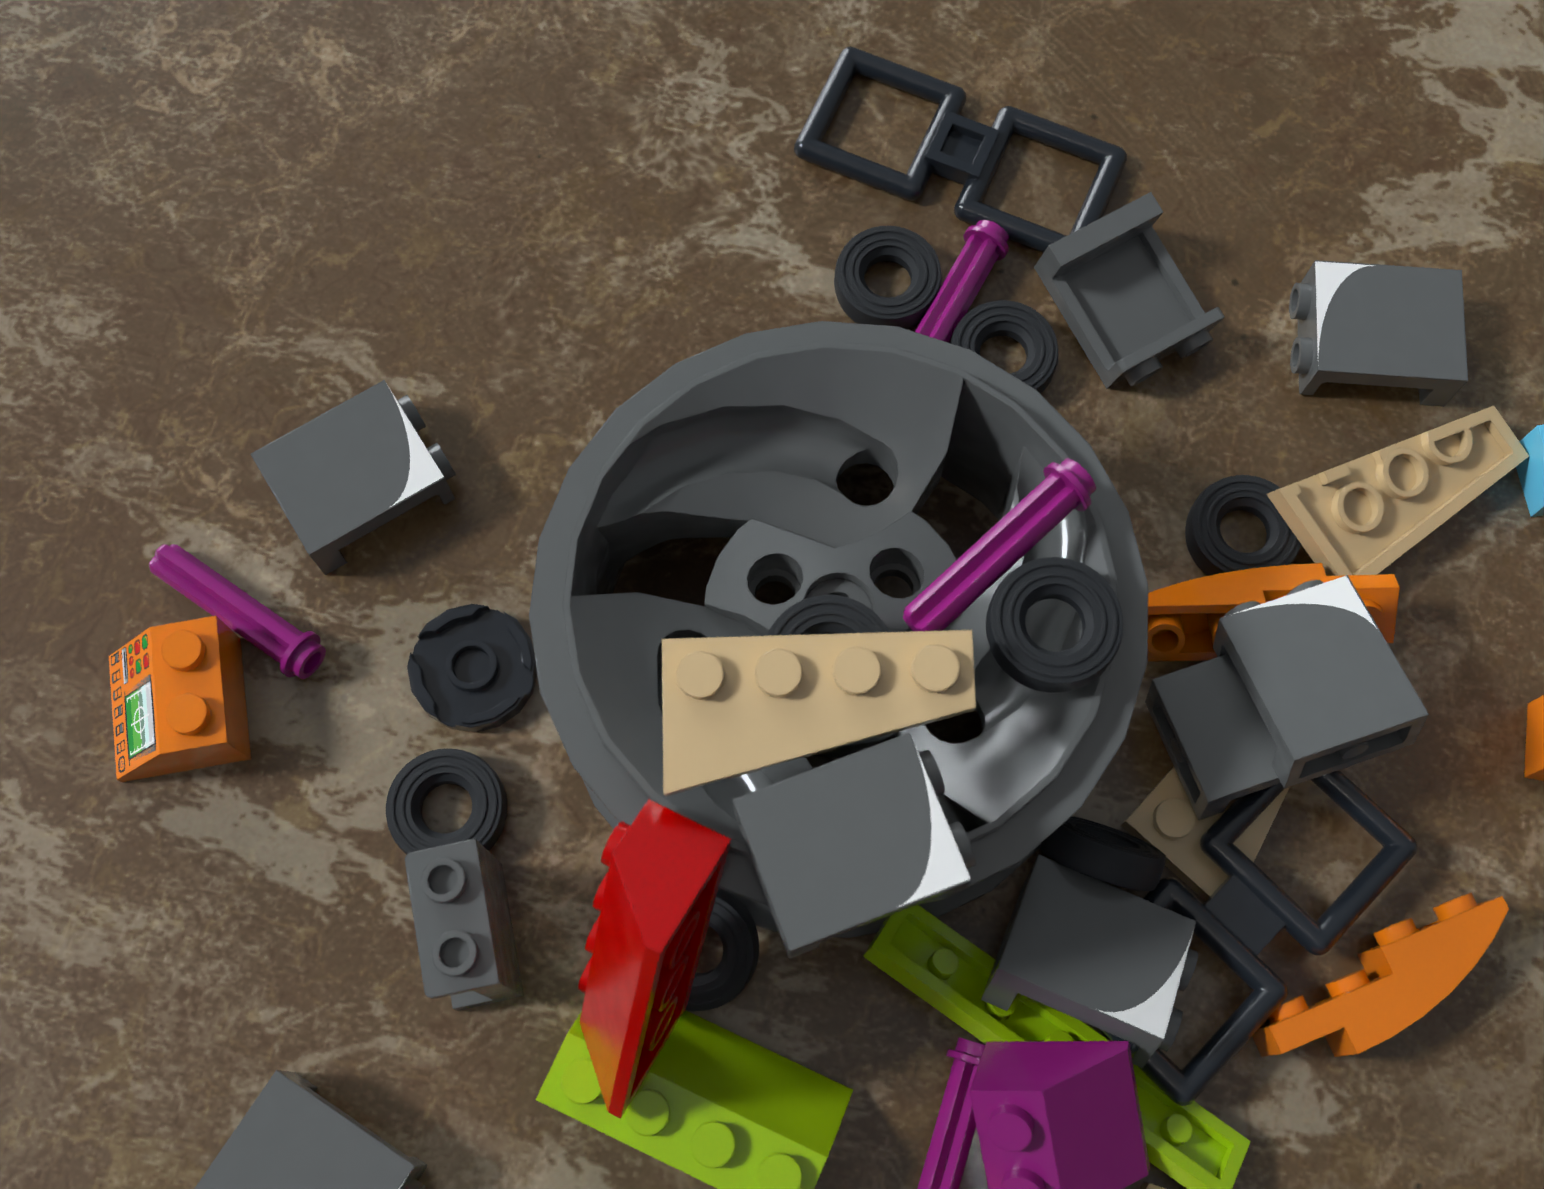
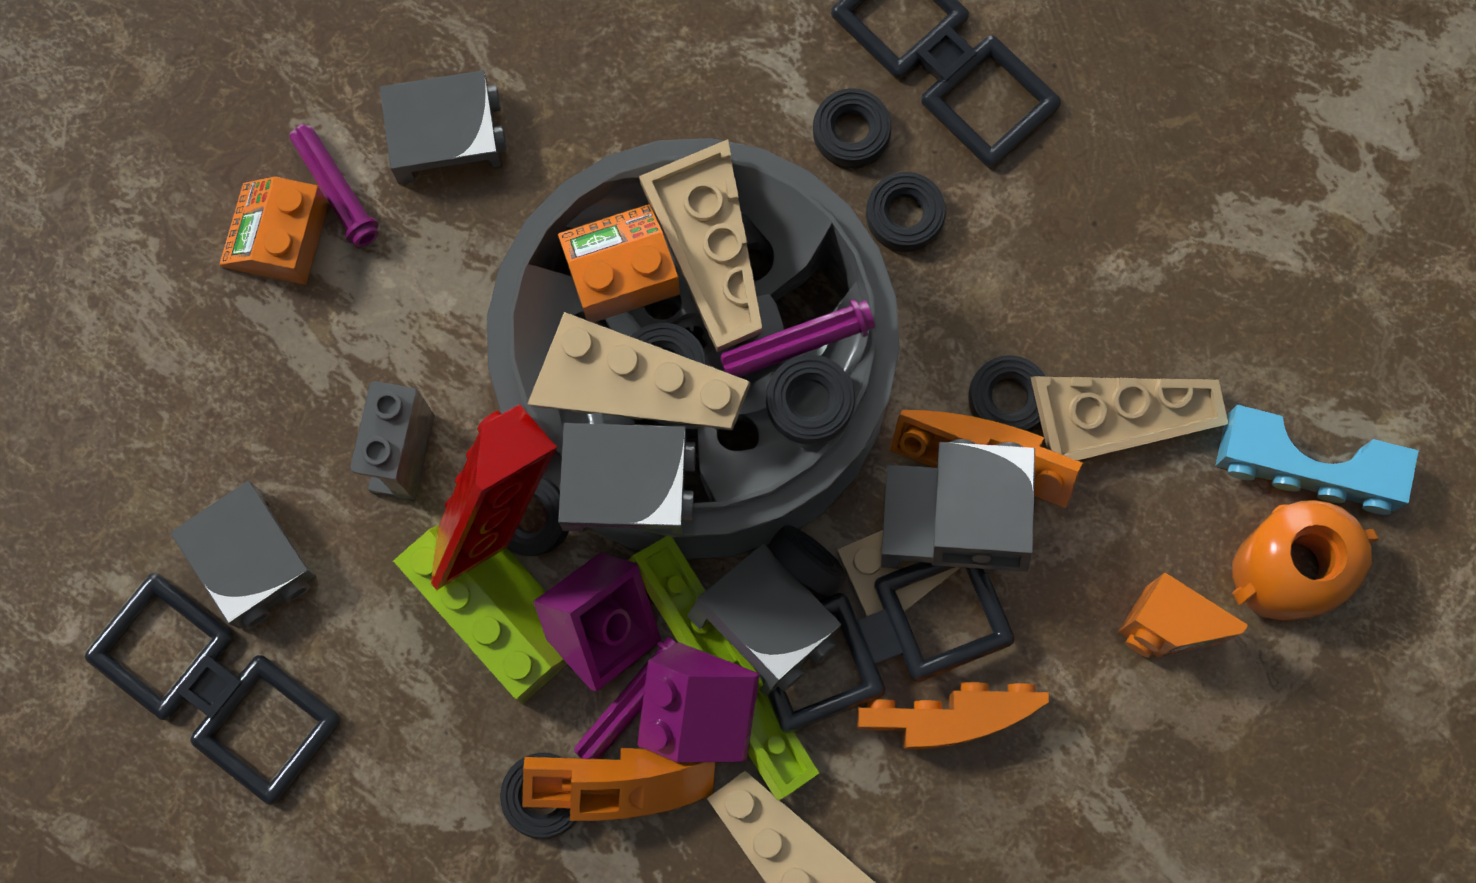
camera: 25 degrees right, 5 degrees up
(439, 768) = (416, 338): black tyre -> none
(472, 668) = (462, 281): black tile -> none
(705, 541) = (620, 263): none -> orange slope
(798, 449) = (706, 234): none -> tan wing
(858, 1056) = (599, 619): none -> magenta slope
(982, 248) = (890, 159): magenta axle -> none
(1125, 294) = (1007, 203): dark grey panel -> none
(1380, 328) = (1170, 296): dark grey panel -> none

